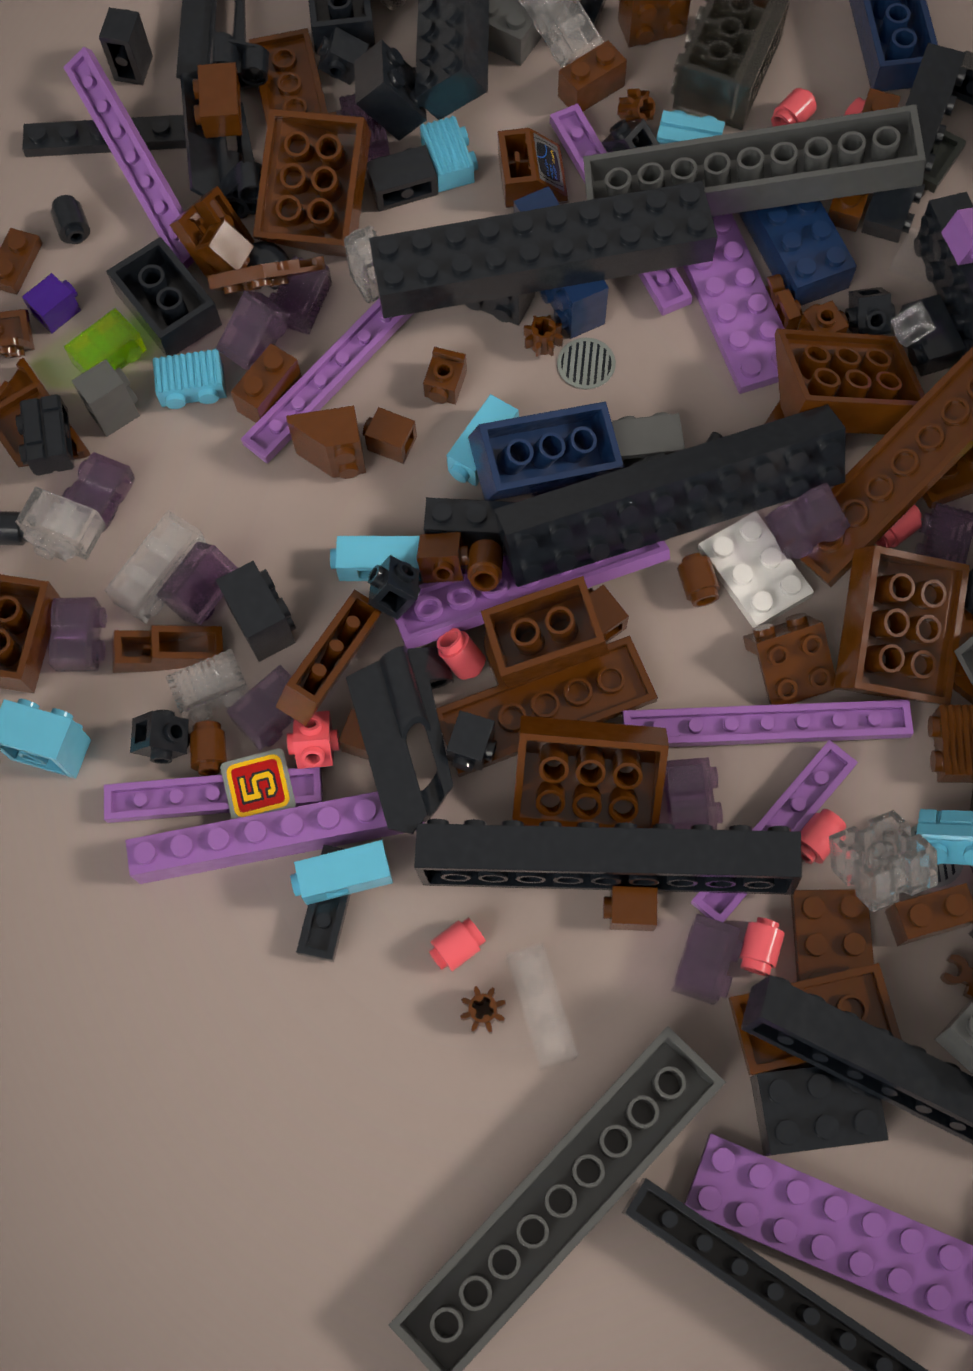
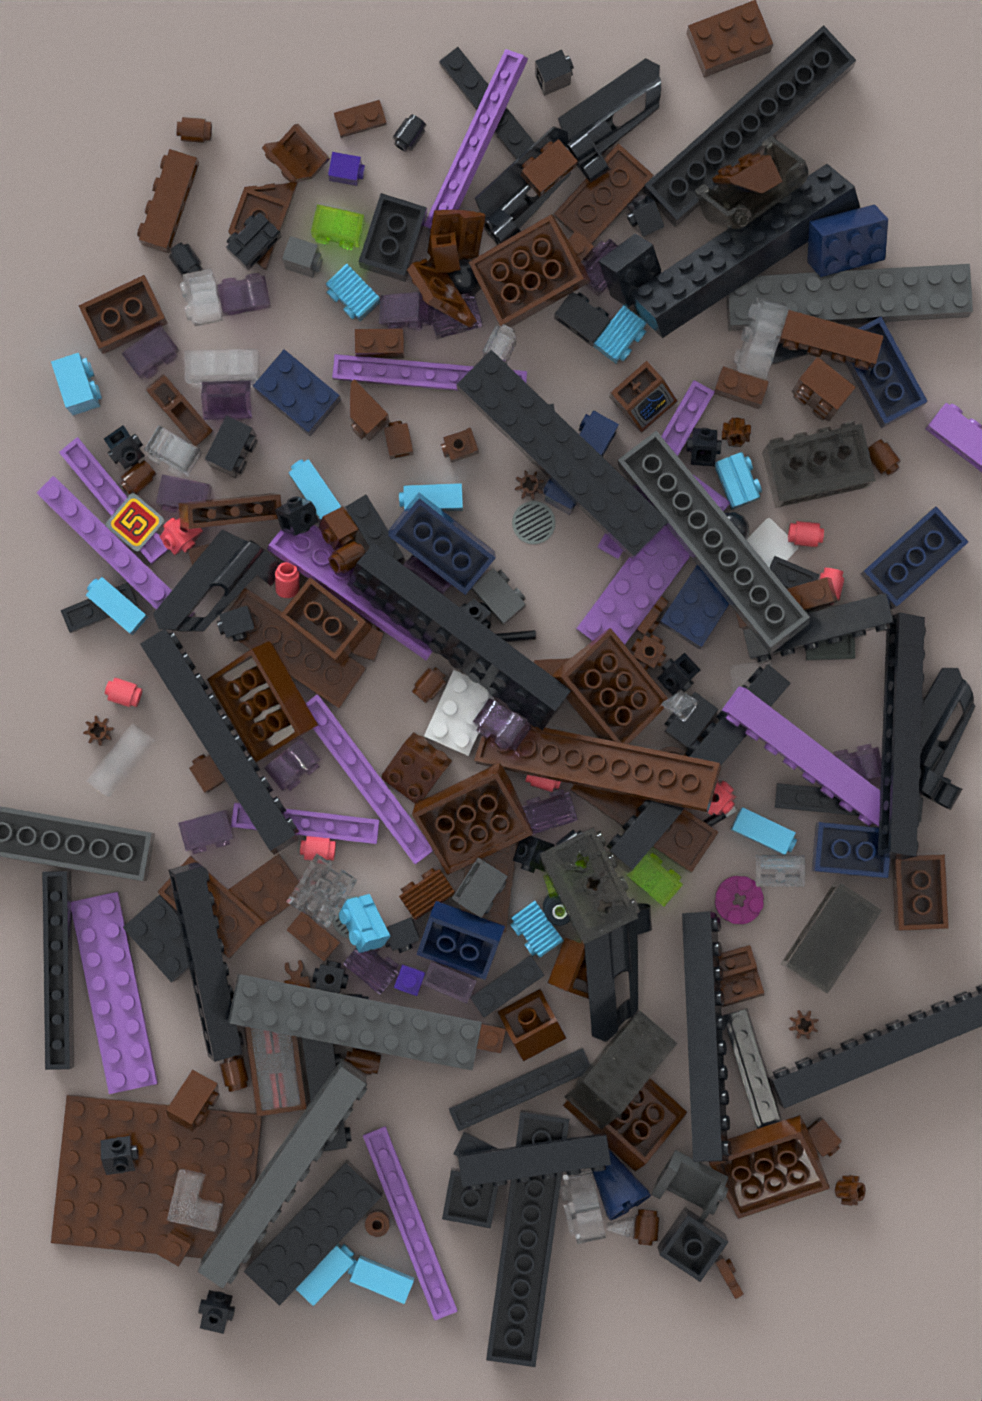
camera: 55 degrees right, 15 degrees up
(251, 504) = (297, 392): none -> dark blue brick
(761, 946) = (234, 855): coral brick -> none

